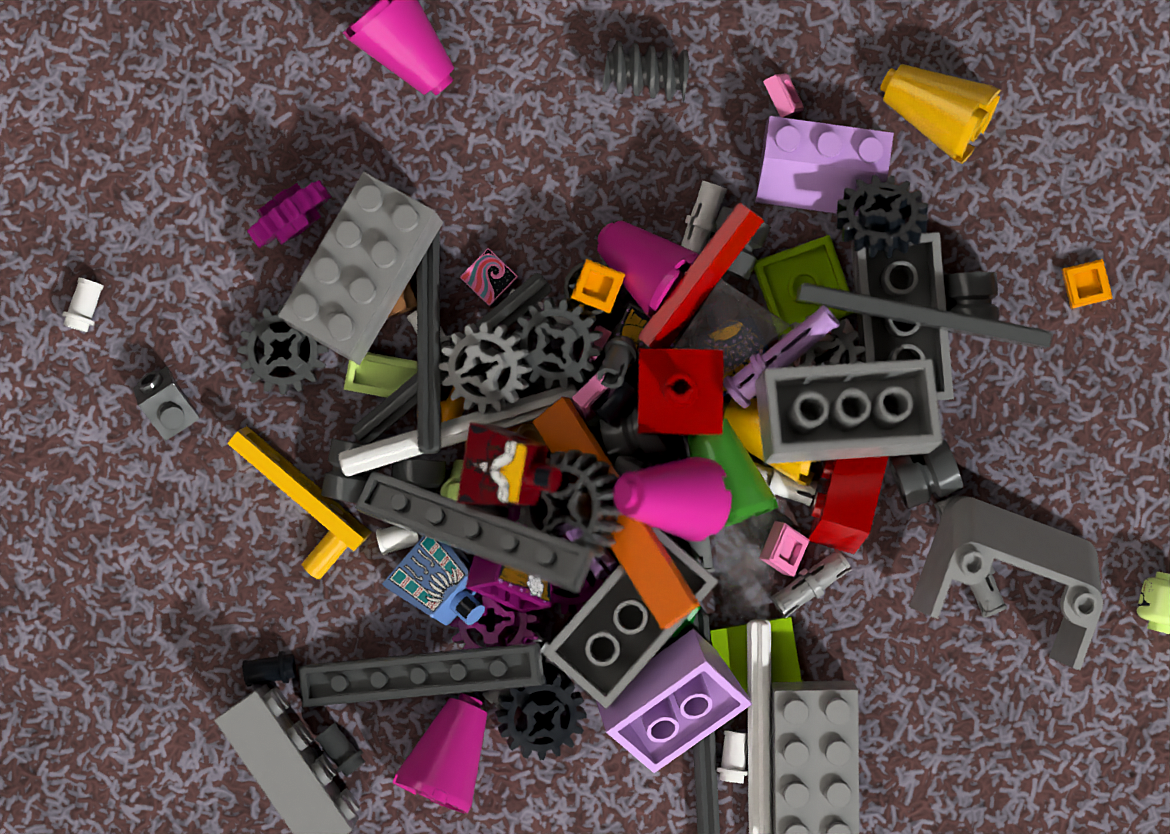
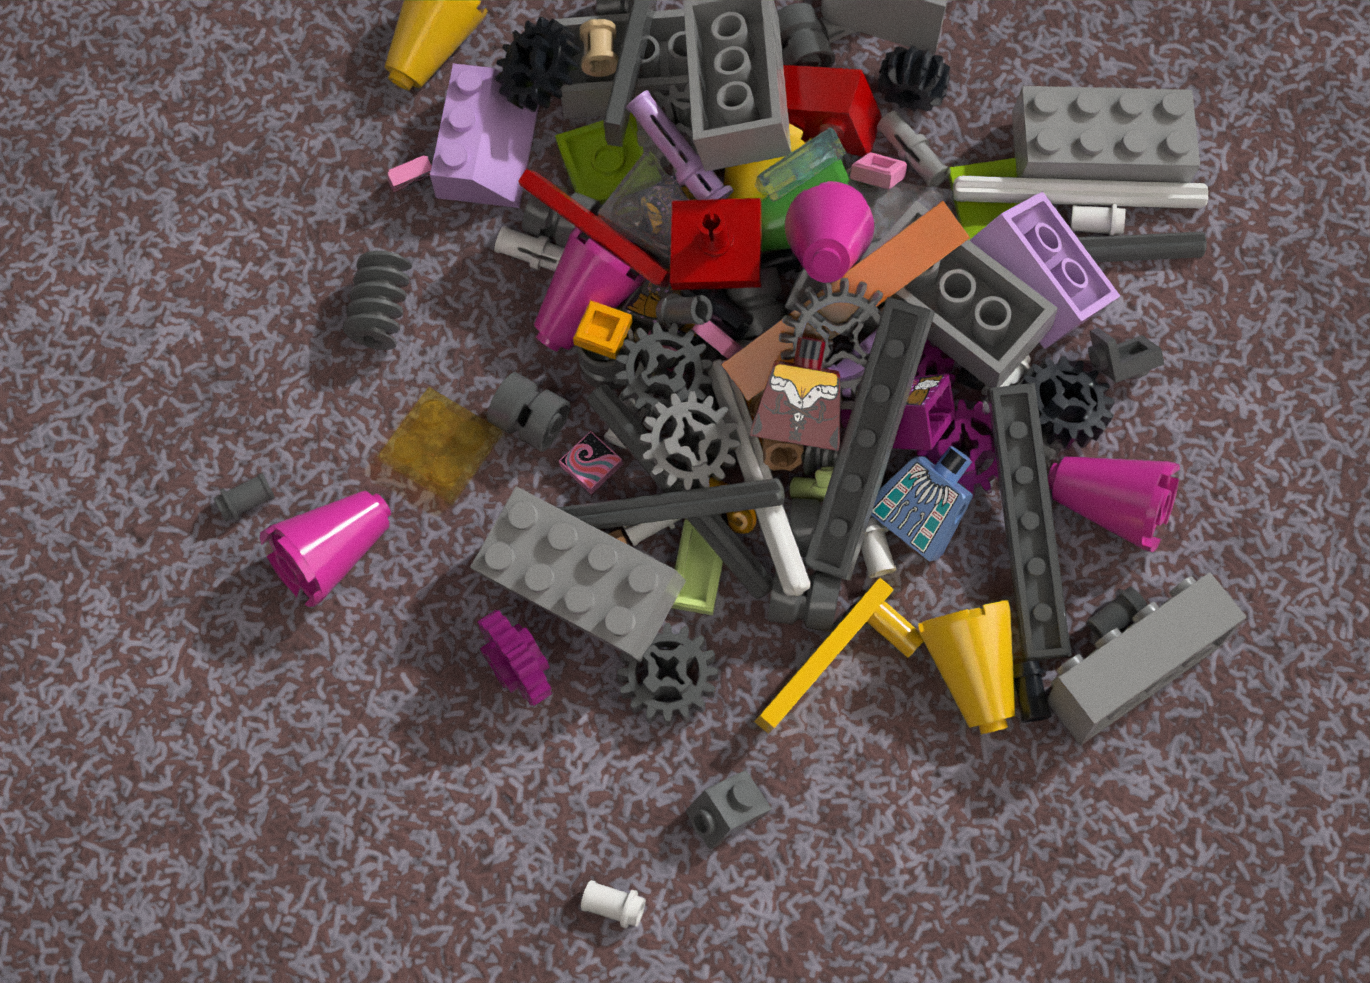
camera: 85 degrees left, 20 degrees down
(293, 621) = (975, 662): none -> yellow cone
(506, 137) = (440, 445): none -> clear yellow plate
(532, 218) = (523, 409): none -> dark grey wheel
(587, 772) = (1123, 360): none -> dark grey bracket
(760, 478) = (800, 165): none -> clear light blue slope
(880, 585) = (913, 78): none -> black gear
(896, 276) = (598, 47): none -> tan bush

